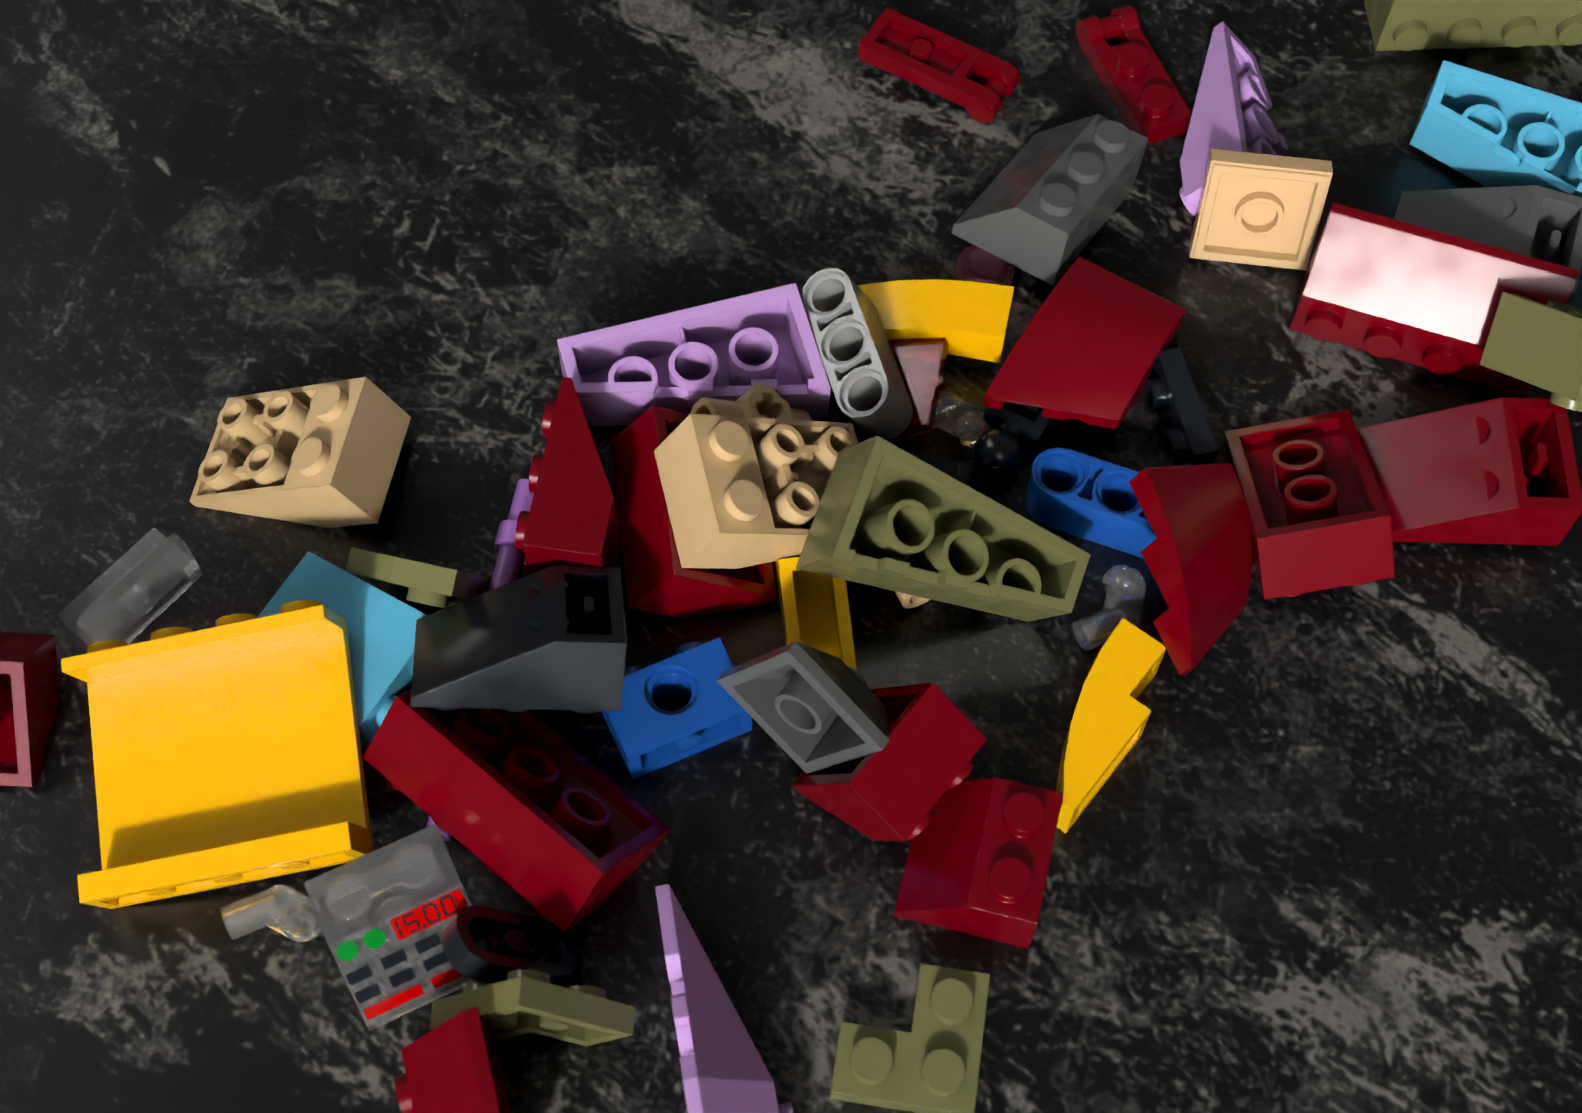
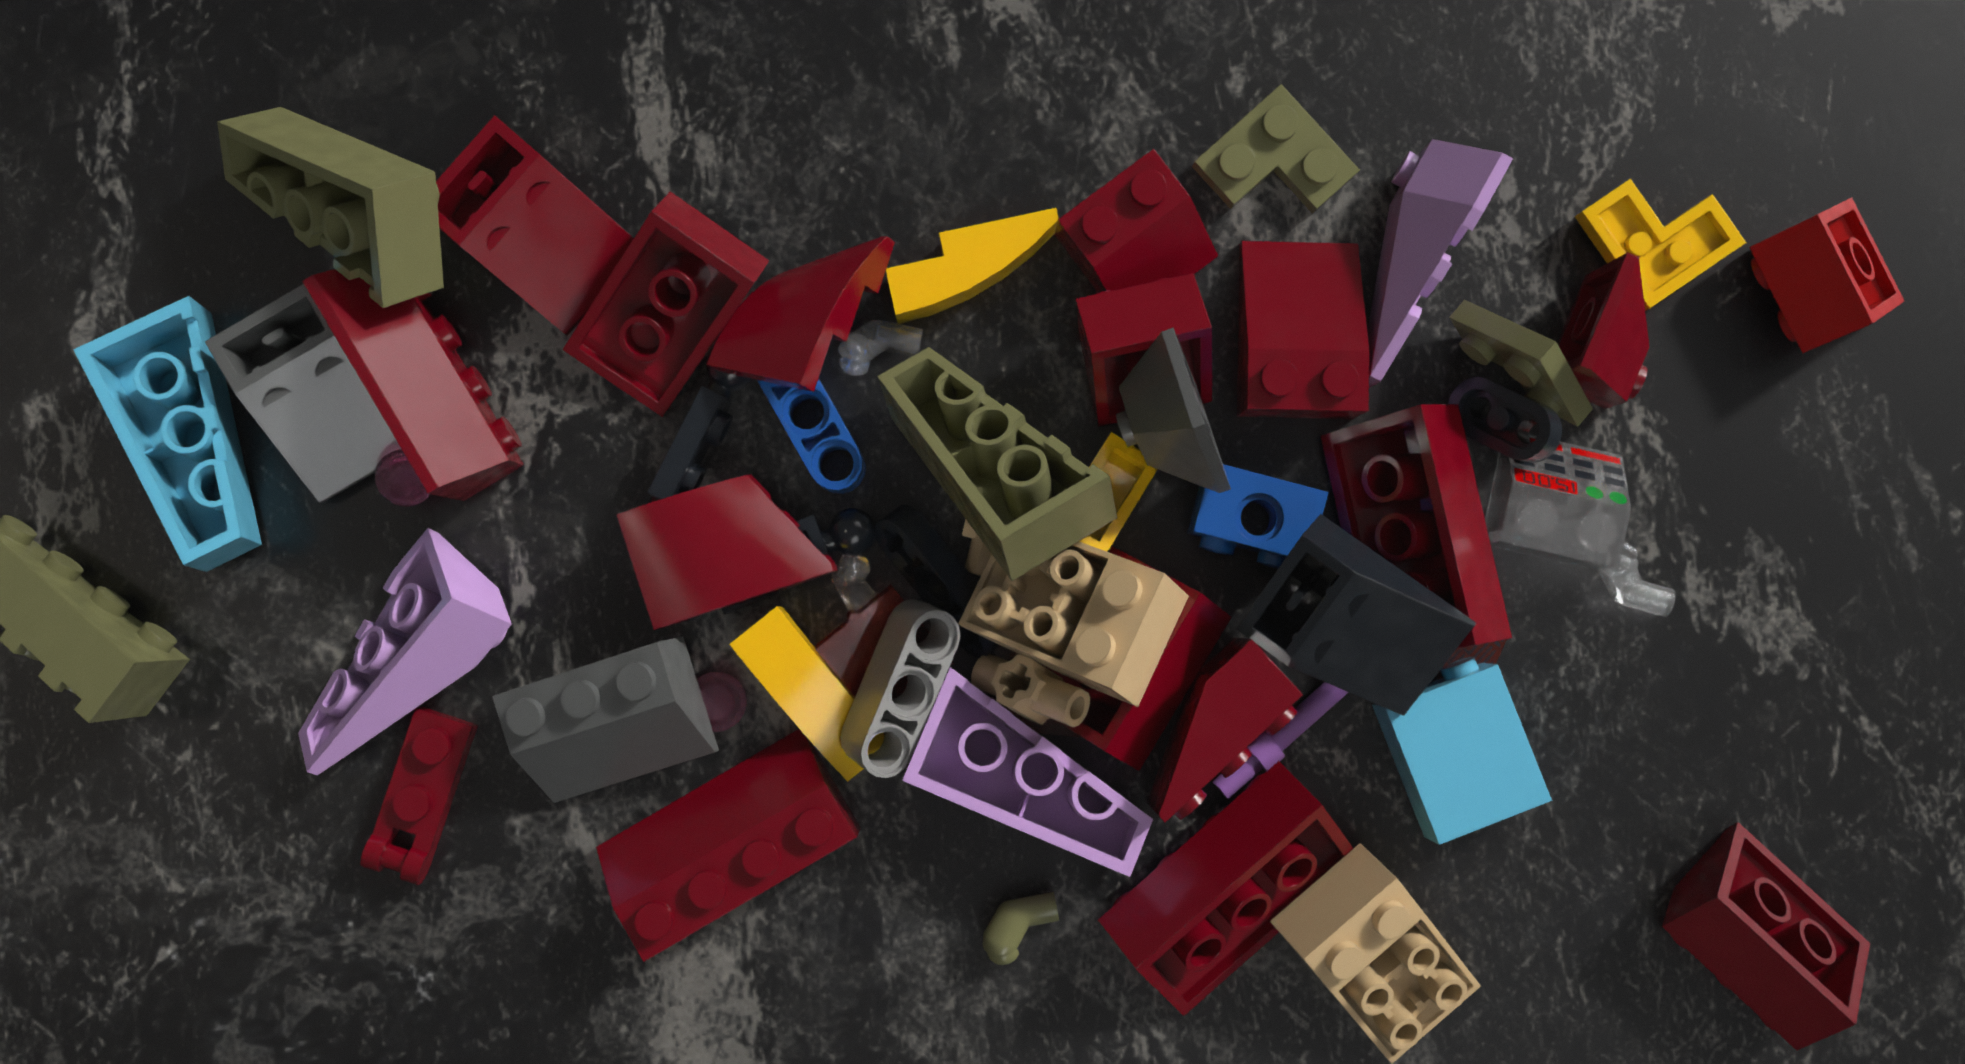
camera: 145 degrees left, 25 degrees up
(133, 590) = (1577, 931): clear panel -> none
(223, 755) = (1607, 713): yellow panel -> none
(426, 582) = (1360, 751): olive plate -> none
(467, 415) = (1220, 890): none -> dark red slope
(621, 283) = (1011, 922): none -> olive arm
(764, 896) = (1301, 331): none -> dark red slope
(886, 180) = (724, 843): none -> dark red slope
(939, 64) = (574, 937): dark red plate -> none
(1260, 209) = (465, 561): tan tile -> none

